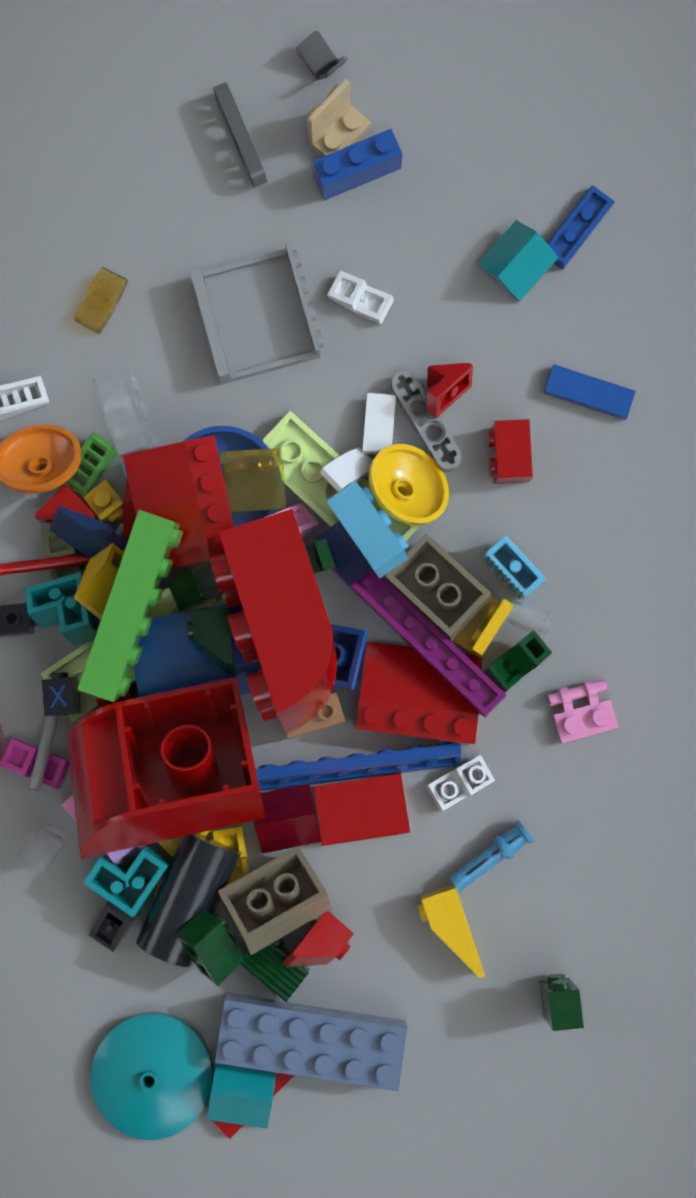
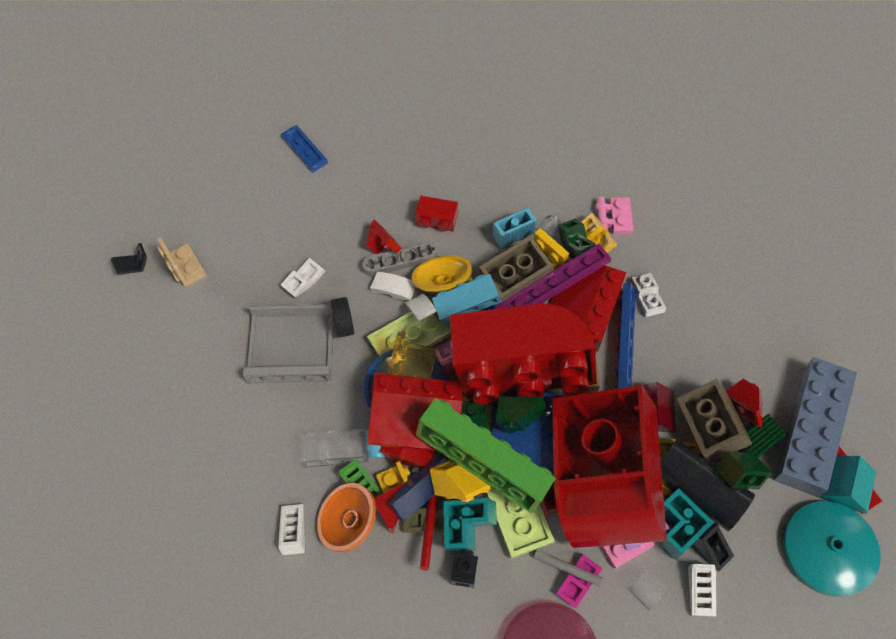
camera: 75 degrees left, 20 degrees down
(61, 695) = (534, 539): black brick -> none
(82, 911) = (693, 569): none -> white slope
(102, 300) = (240, 447): clear yellow slope -> none
(240, 134) = (159, 324): dark grey beam -> none
(305, 369) = (342, 317): none -> black tyre
(357, 164) = (213, 256): blue brick -> none
(361, 809) = (655, 357): red tile -> none
(448, 921) = (739, 320): yellow slope -> none
(460, 877) = (696, 279): dark azure pin -> none
(518, 259) = (312, 181): teal slope -> none
(538, 693) = (598, 233): none -> yellow slope
(561, 1003) = (804, 263): dark green brick -> none
(589, 392) = (411, 165): blue tile -> none

